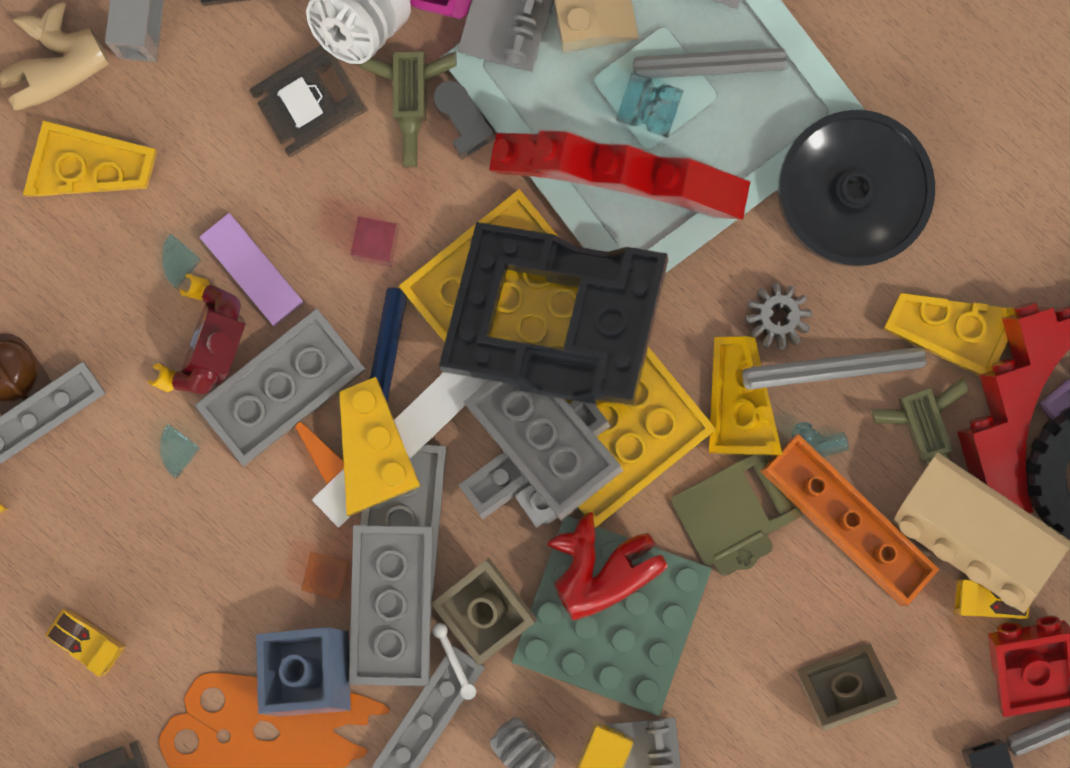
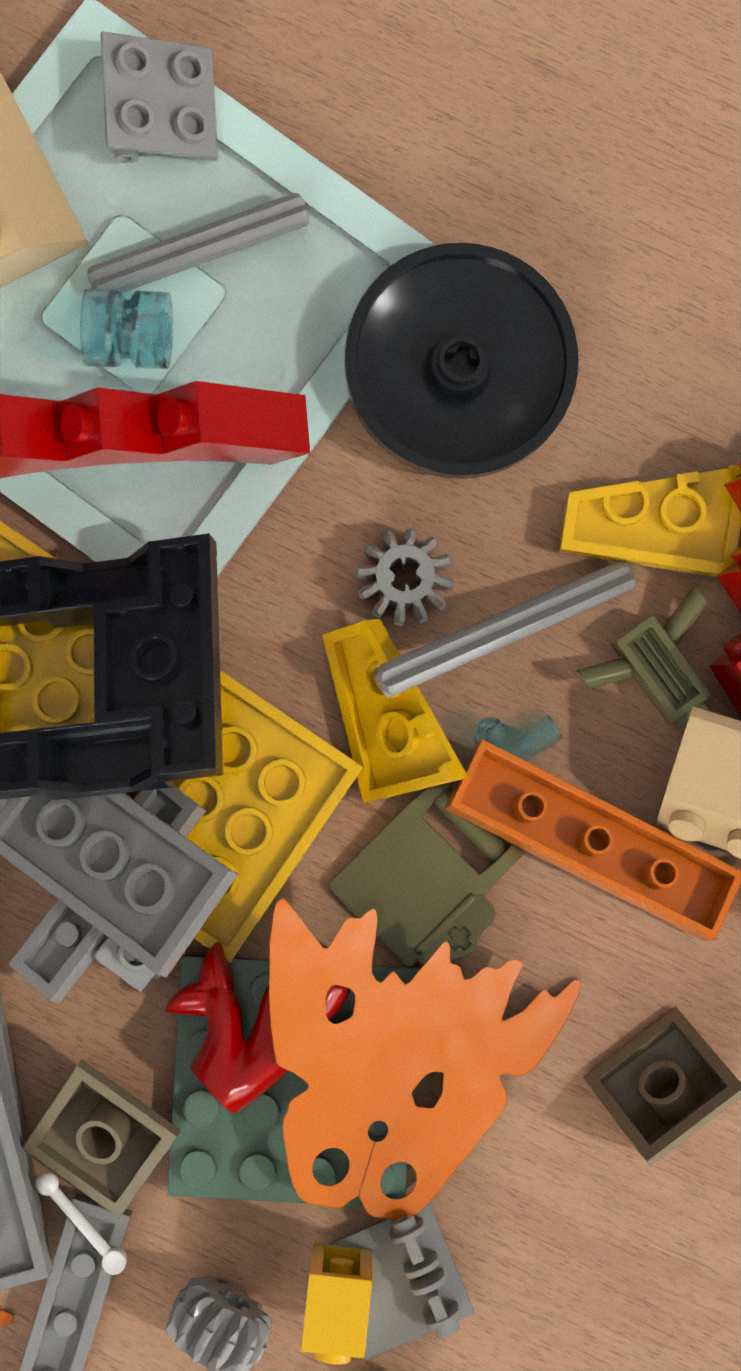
camera: 20 degrees left, 0 degrees up
(674, 612) = (382, 1052): none -> orange piece

